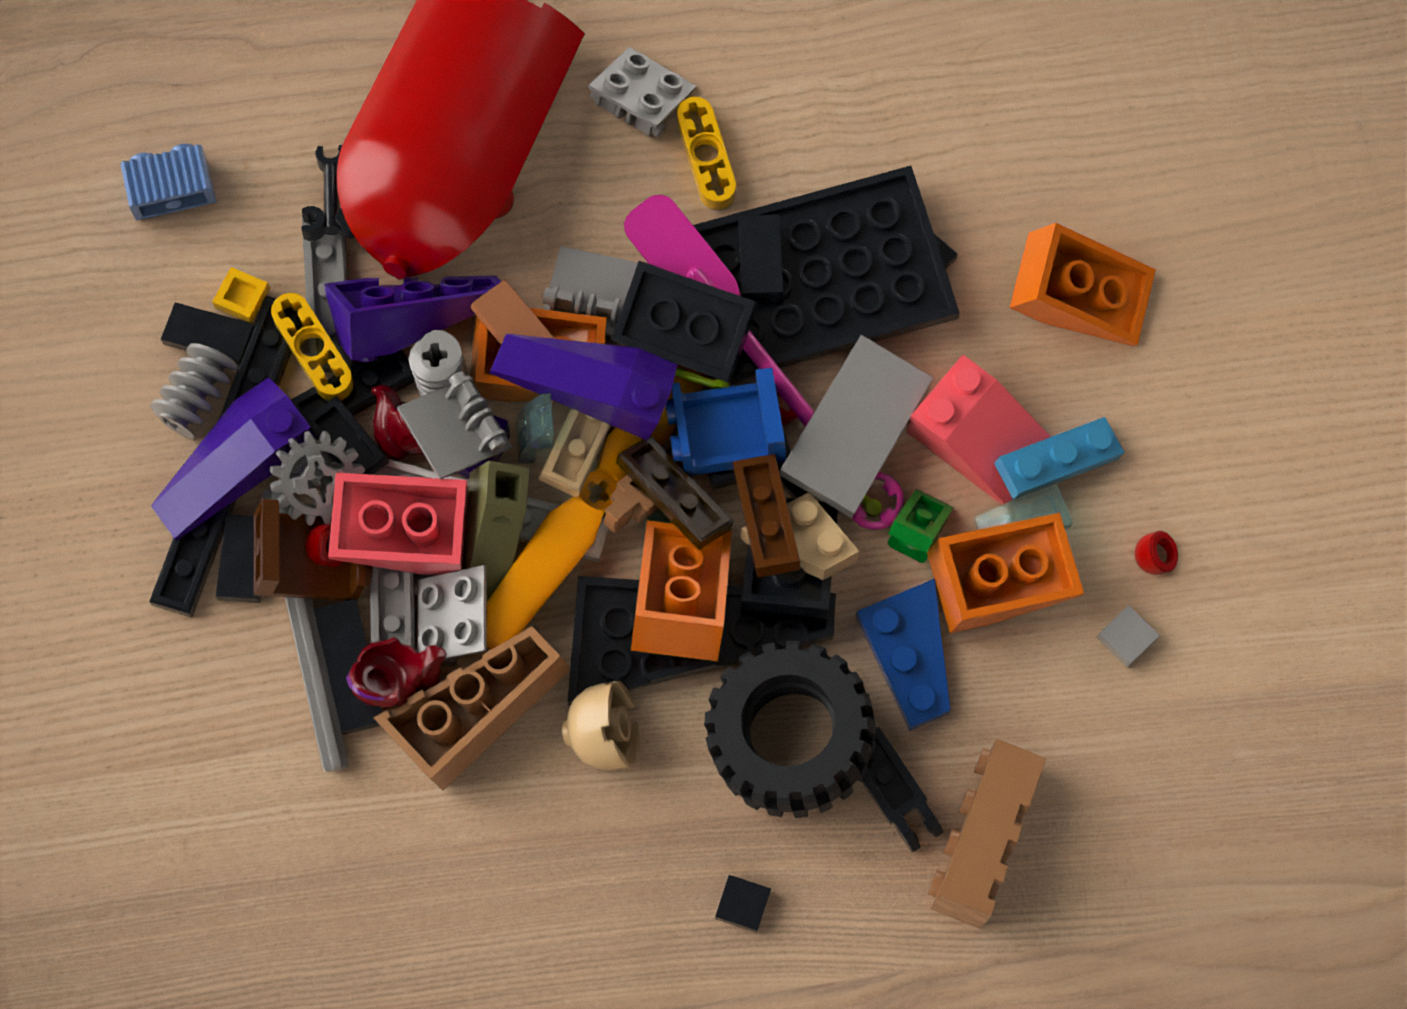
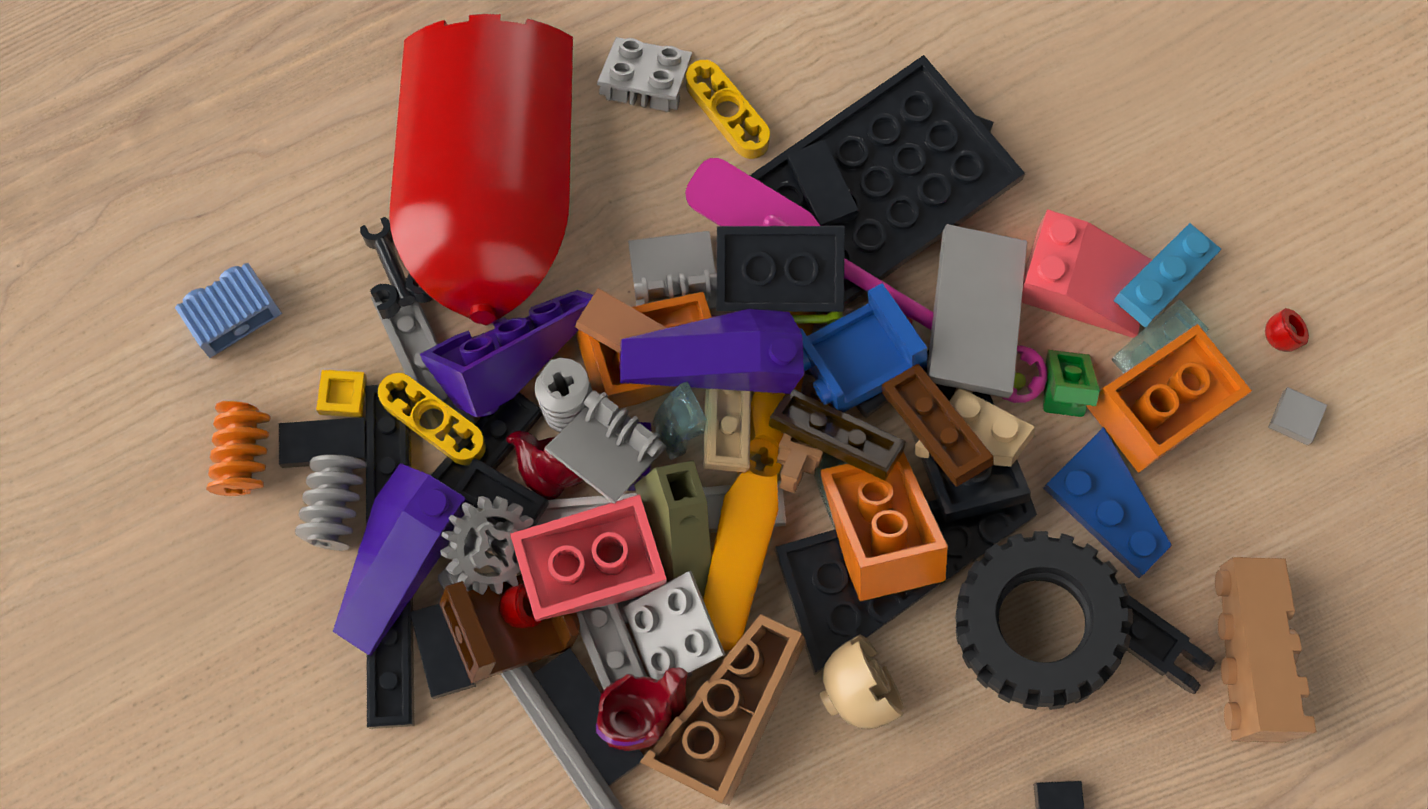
camera: 20 degrees left, 0 degrees up
(127, 312) = (236, 449): none -> orange piece
(1082, 285) = (1117, 111): orange slope -> none

